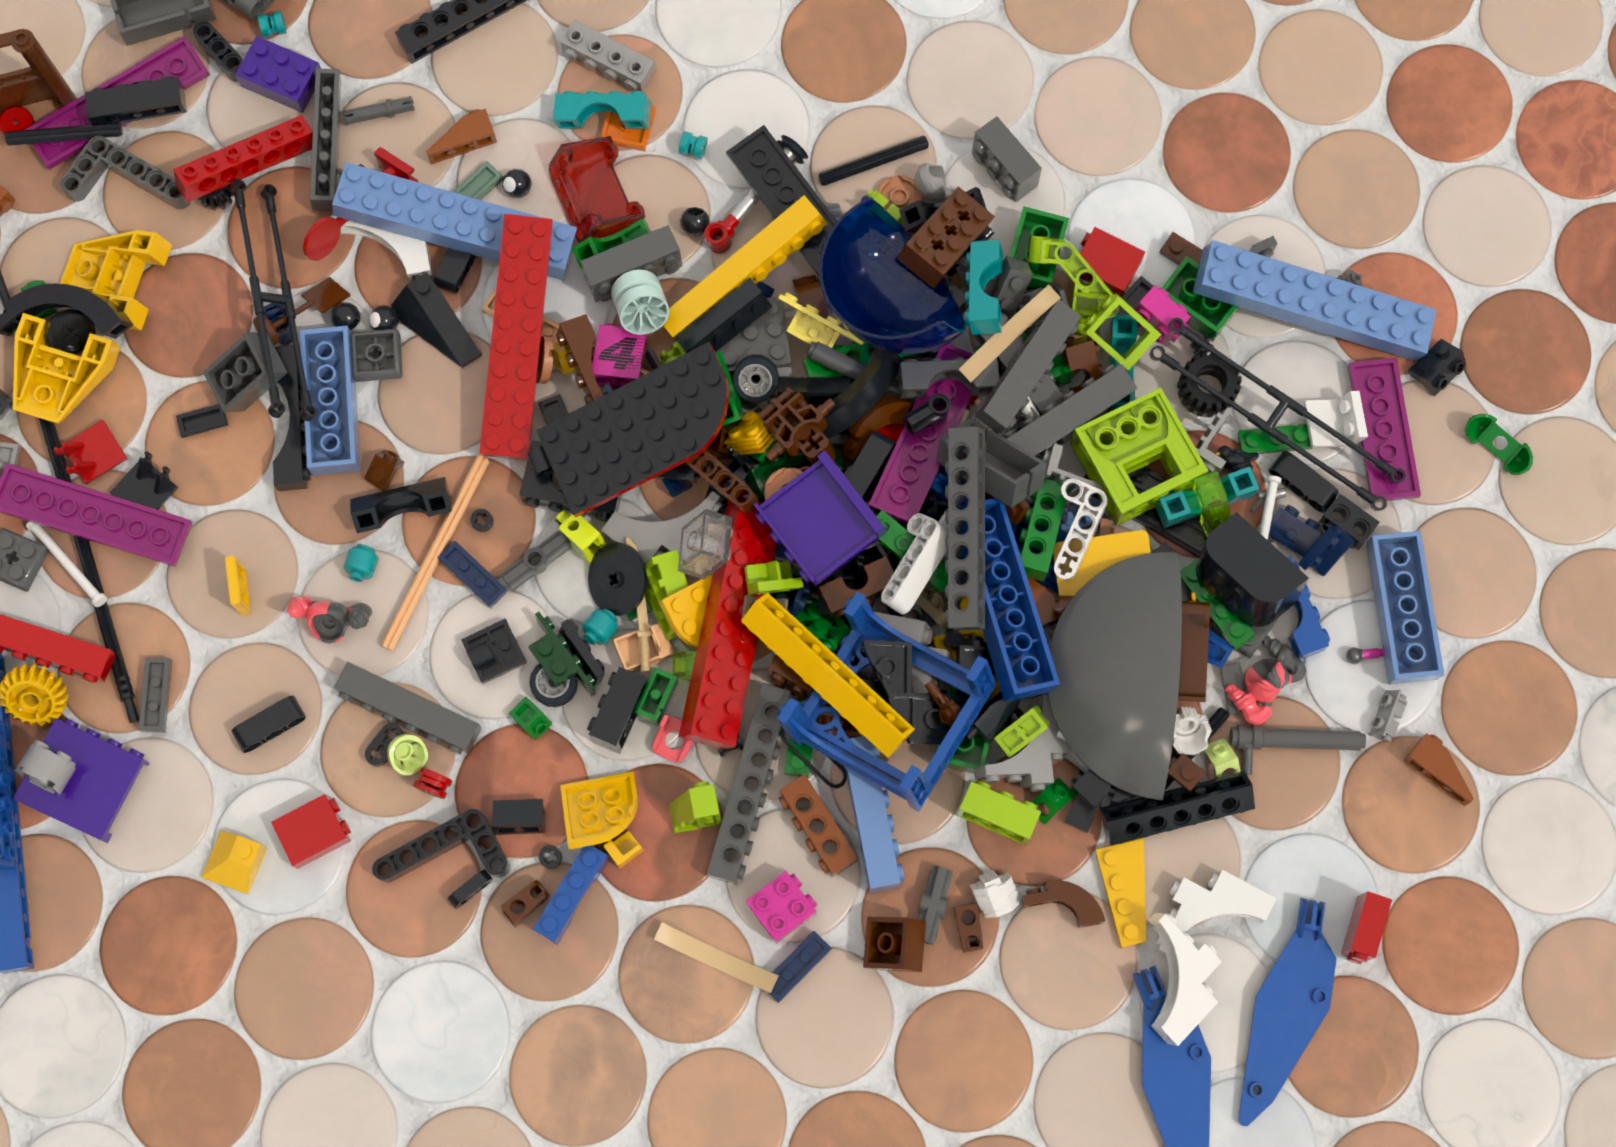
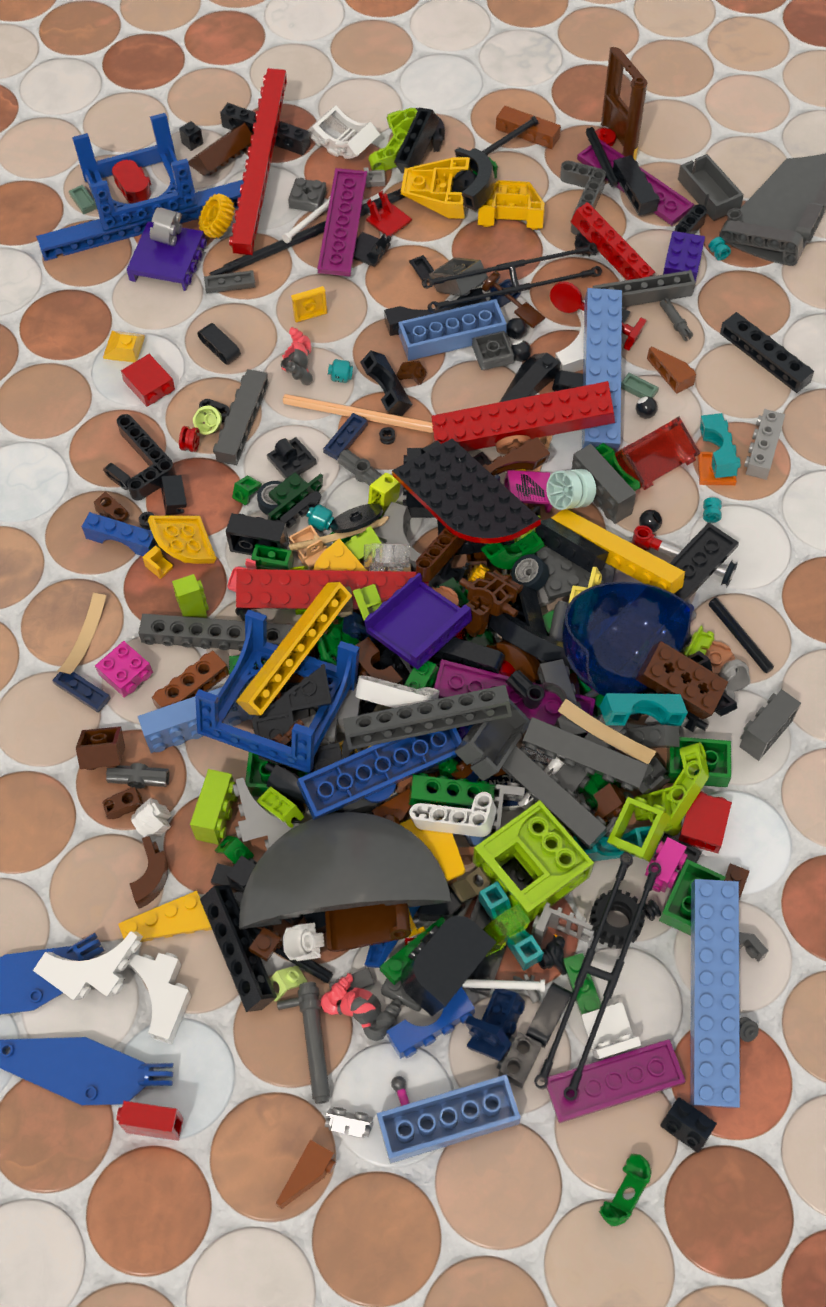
camera: 80 degrees right, 15 degrees down
(1155, 539) = (467, 888): none -> dark tan bracket

